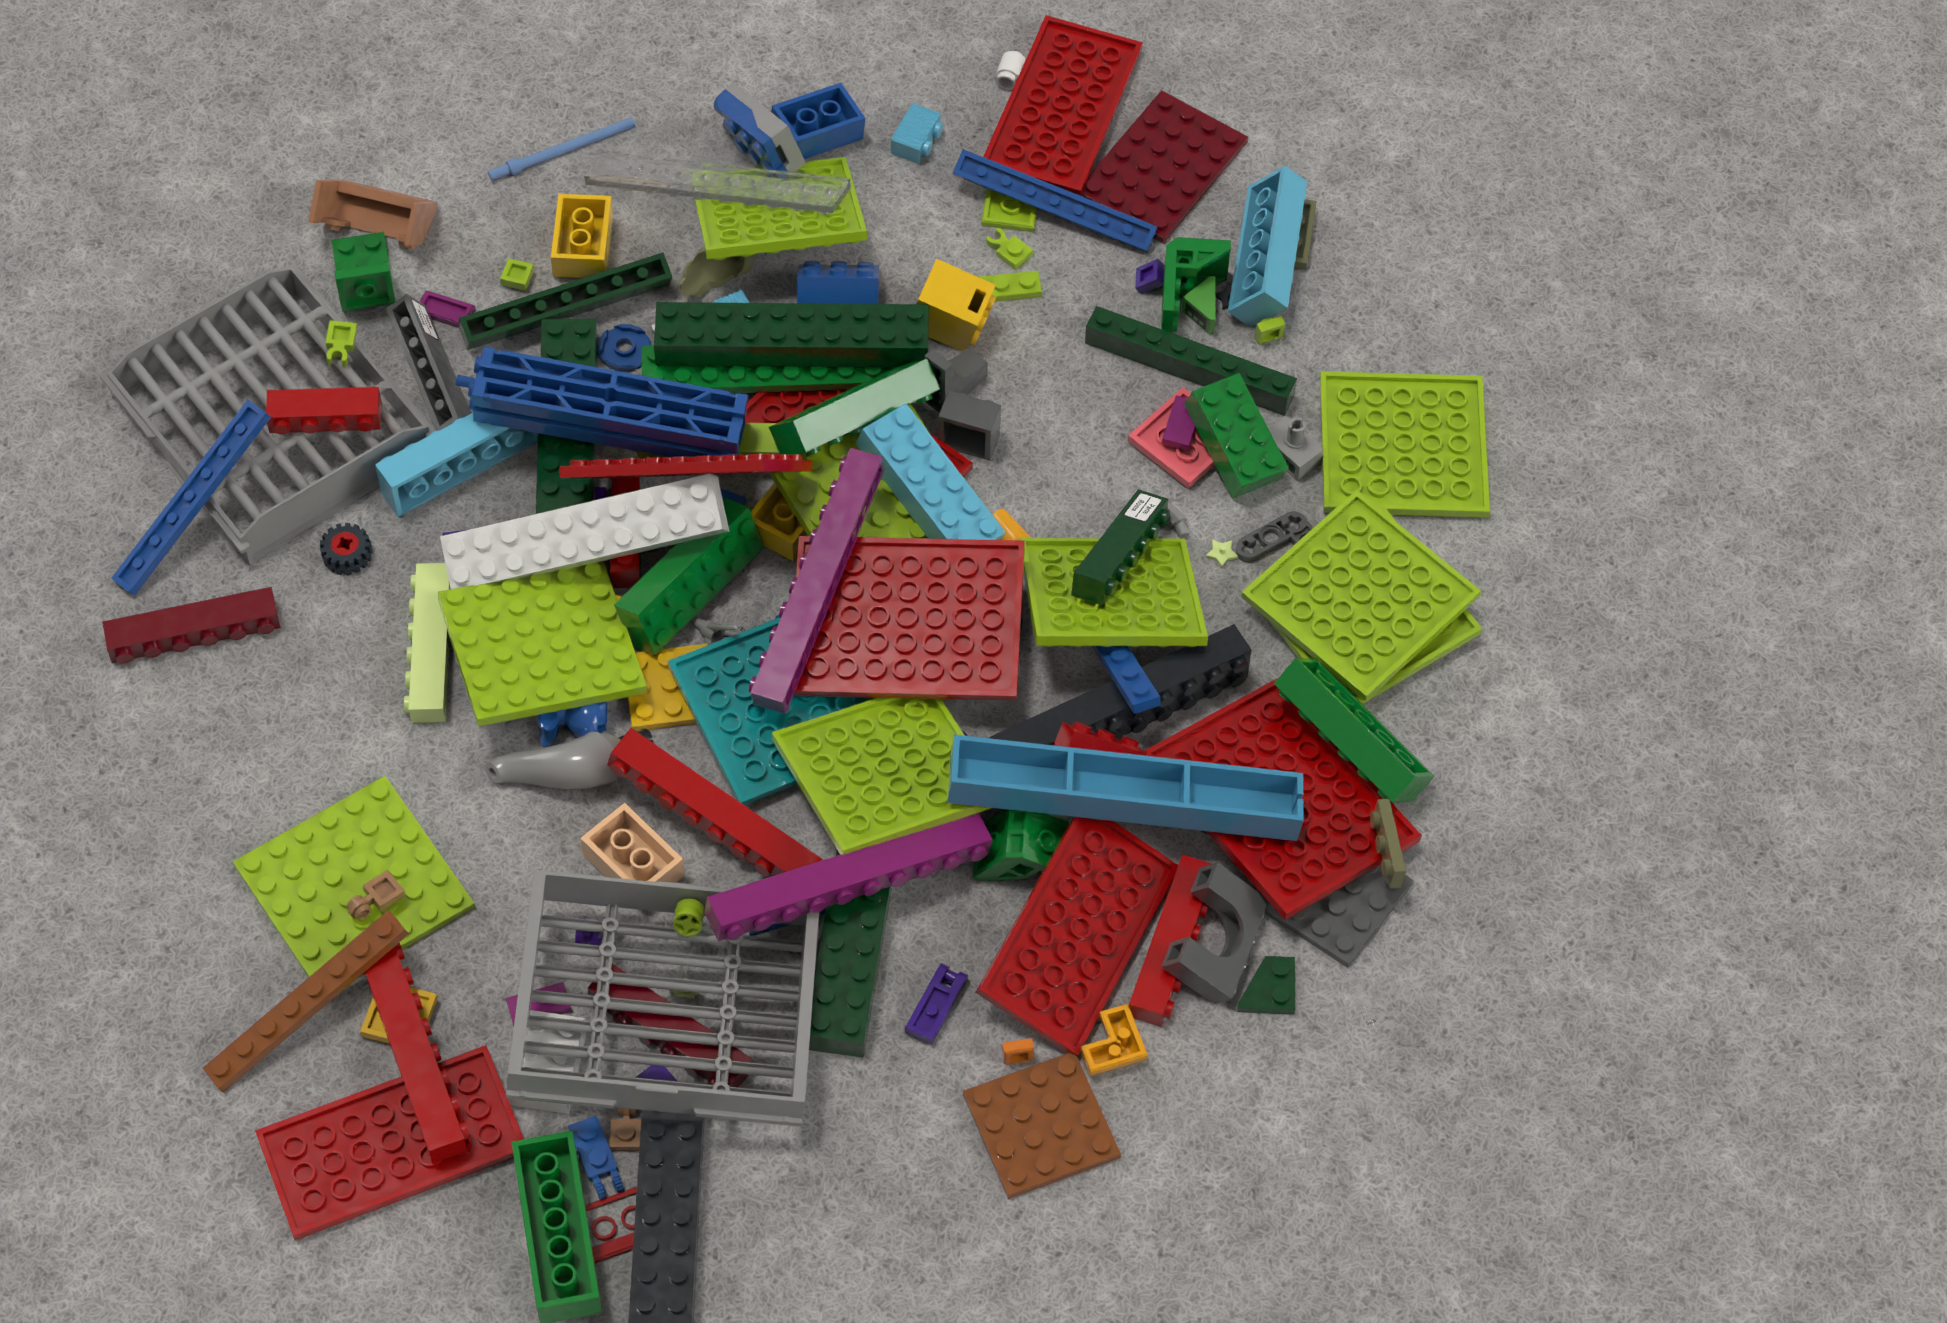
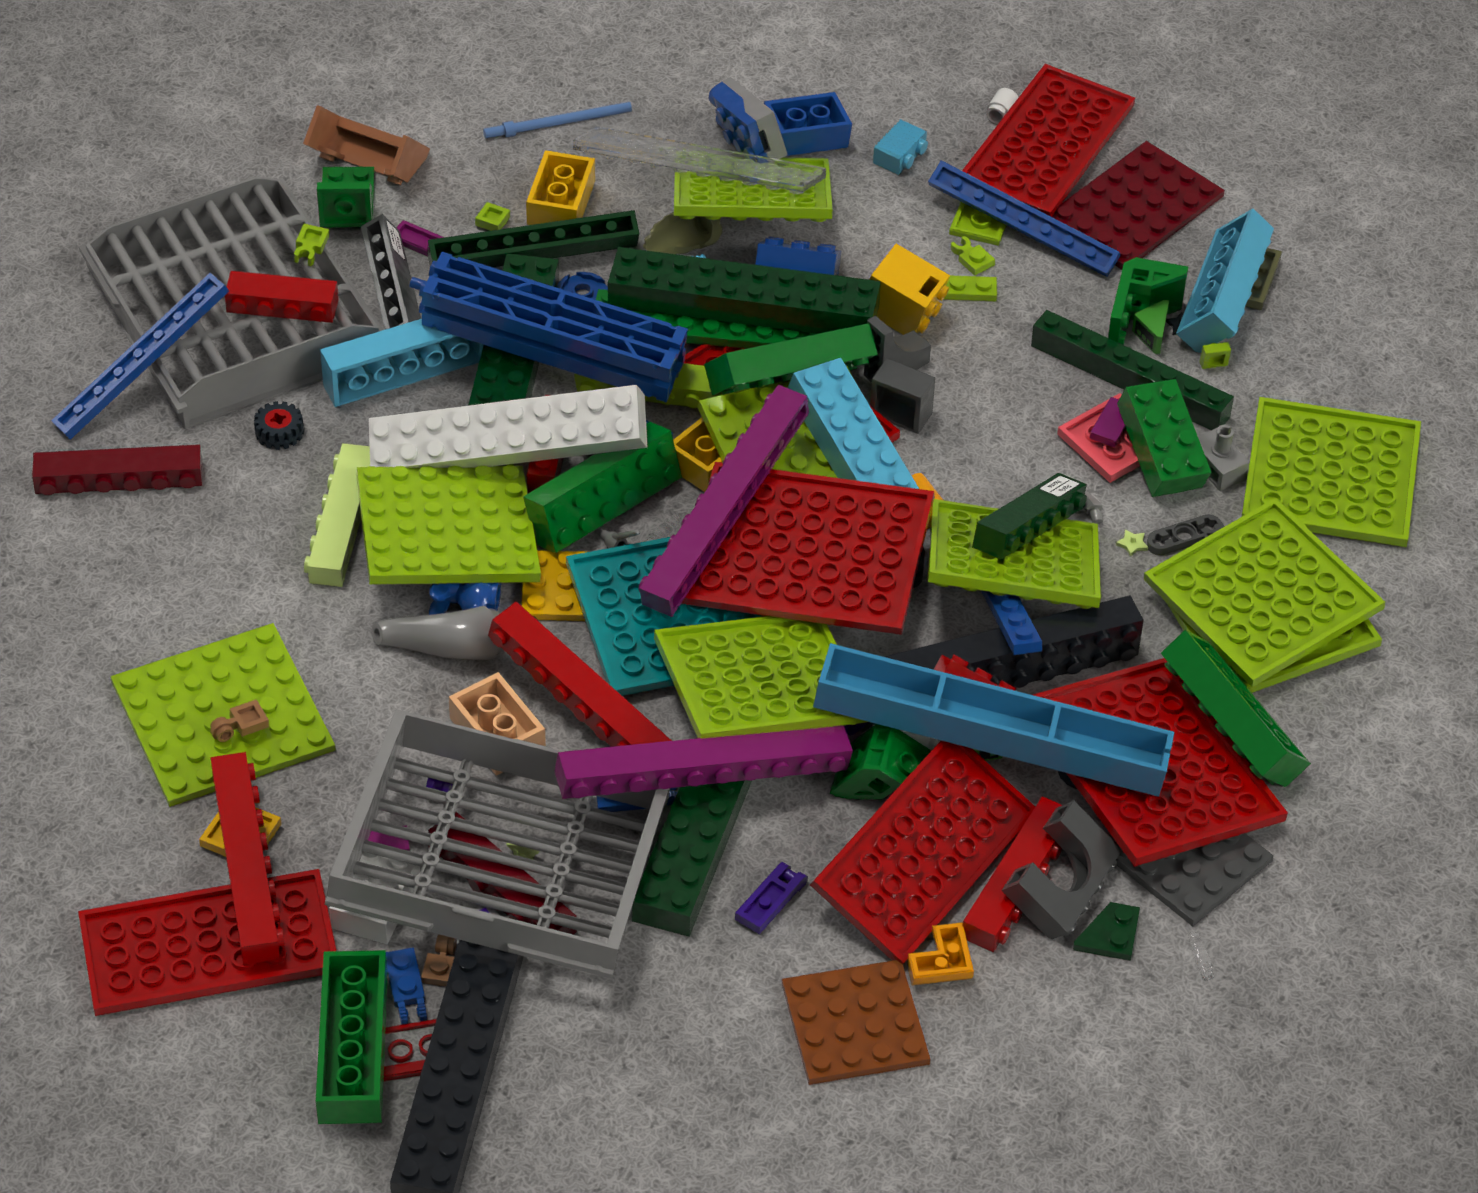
camera: 10 degrees right, 10 degrees down
(305, 1001) = (151, 801): dark orange plate -> none
(686, 466) = (657, 382): red plate -> none
(690, 924) = (533, 781): lime wheel -> none
(1017, 1051) = (844, 950): orange tile -> none
(1149, 276) = (1104, 295): dark purple plate -> none
(1388, 843) = (1250, 811): olive plate -> none

